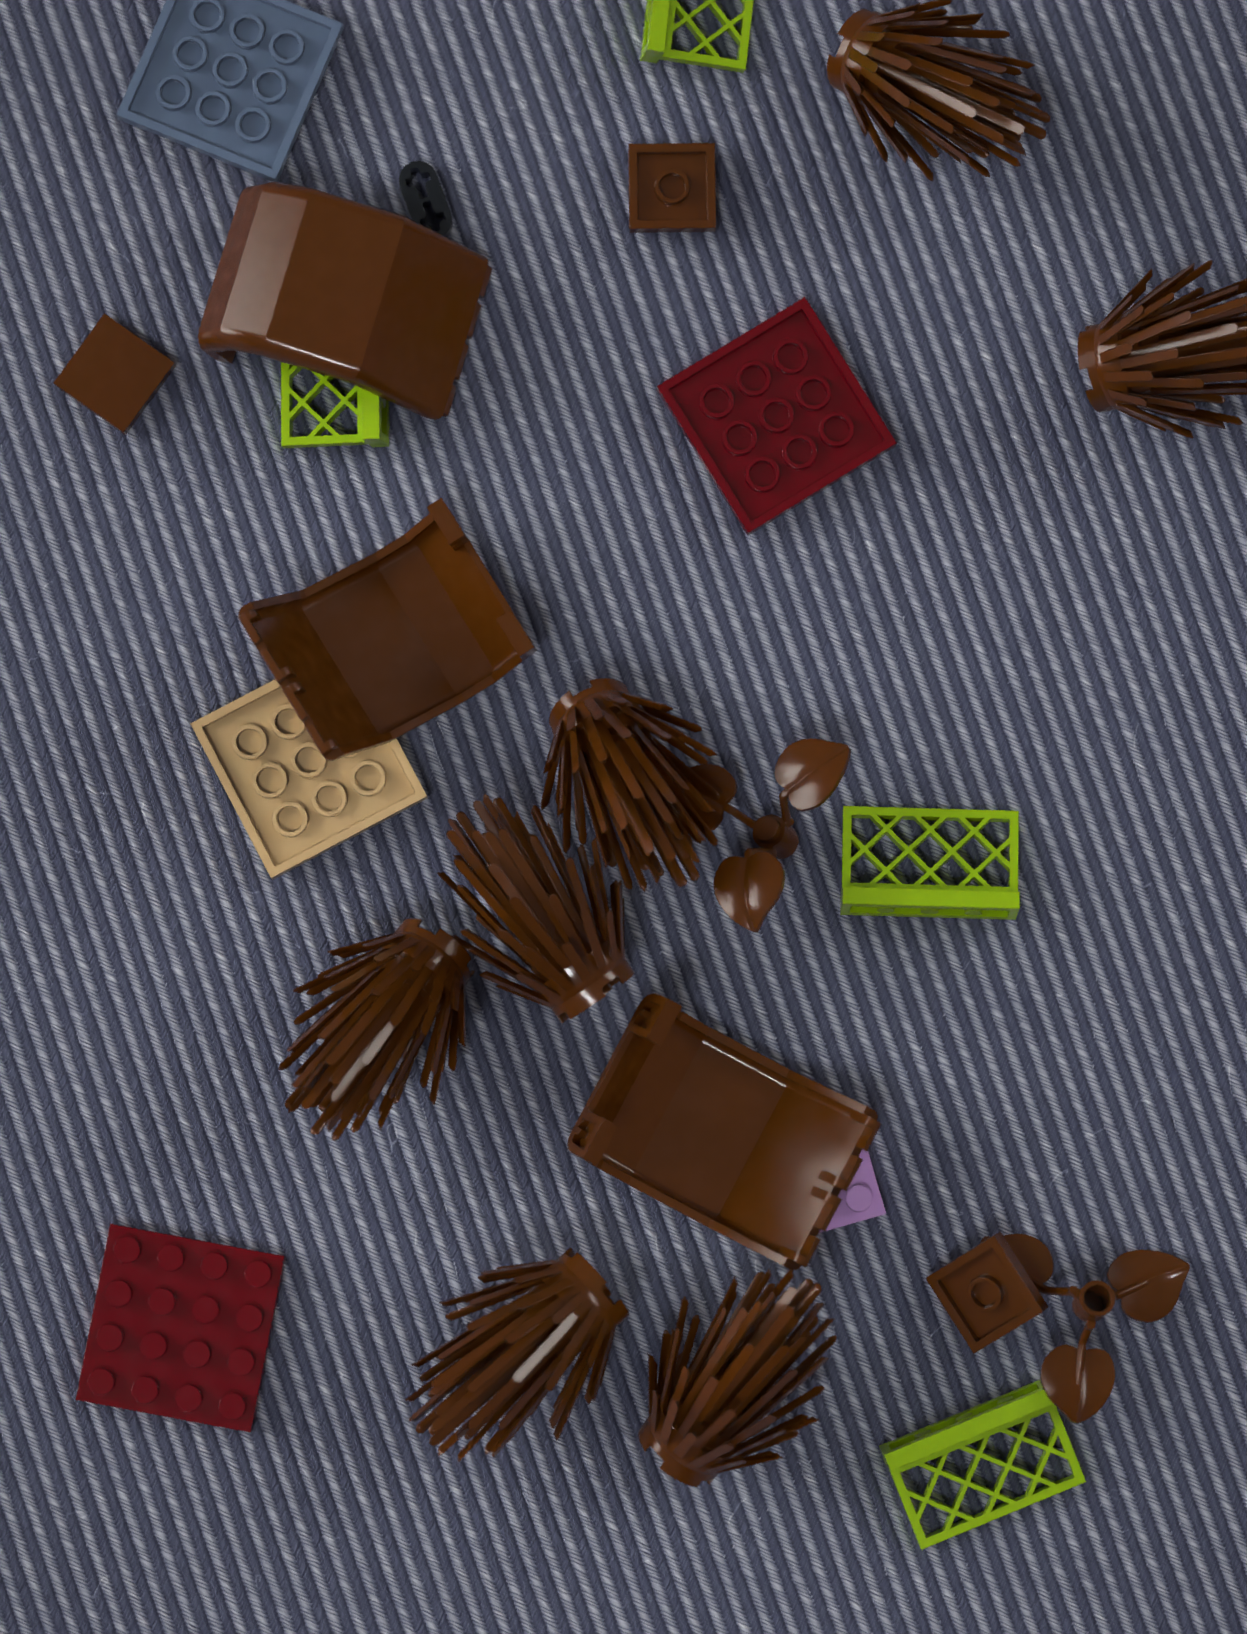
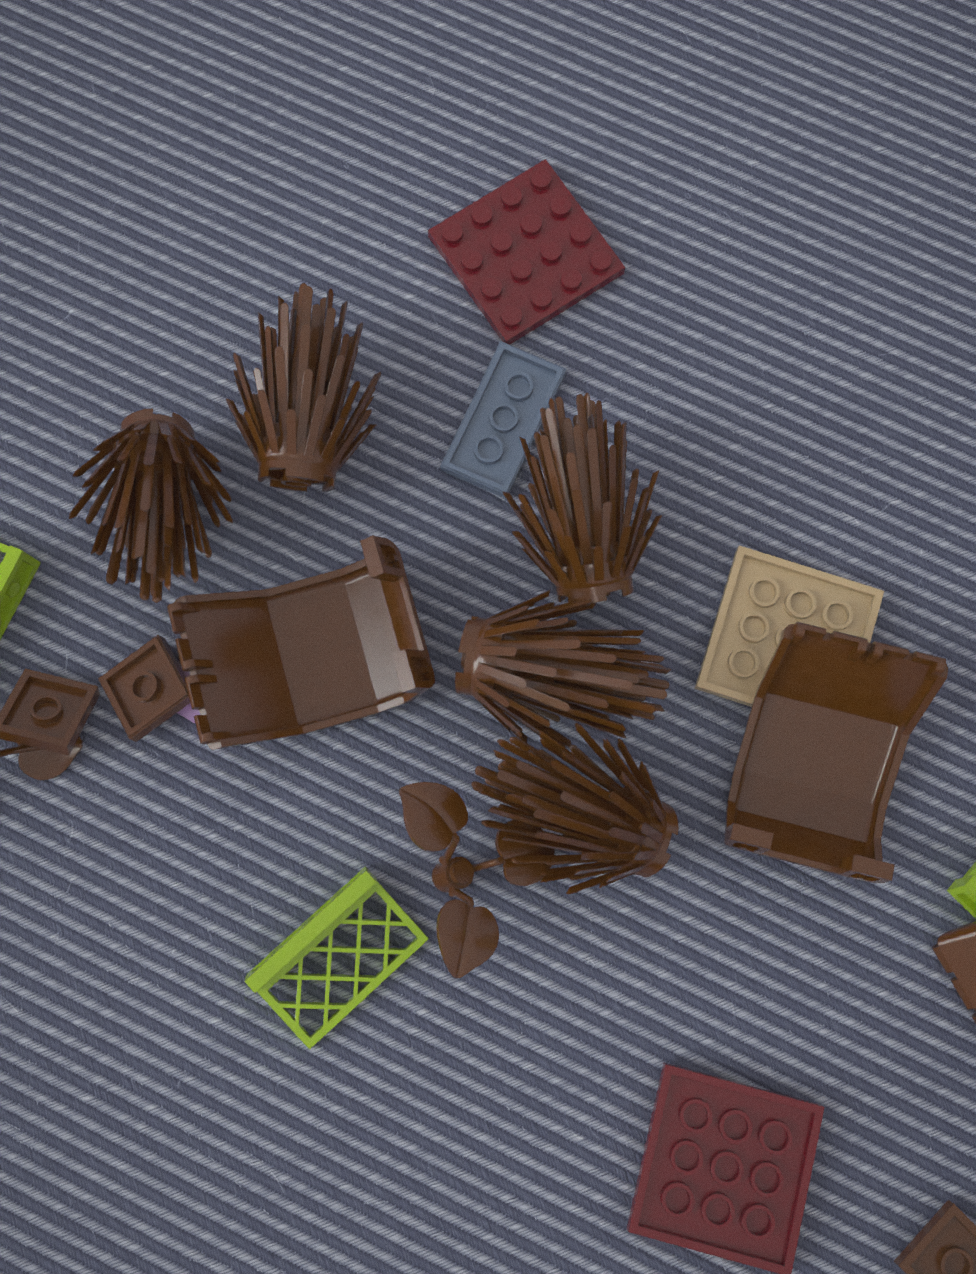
camera: 135 degrees right, 5 degrees down
(355, 1188) = (502, 410): none -> sand blue tile
(885, 1234) = (146, 688): none -> reddish brown tile

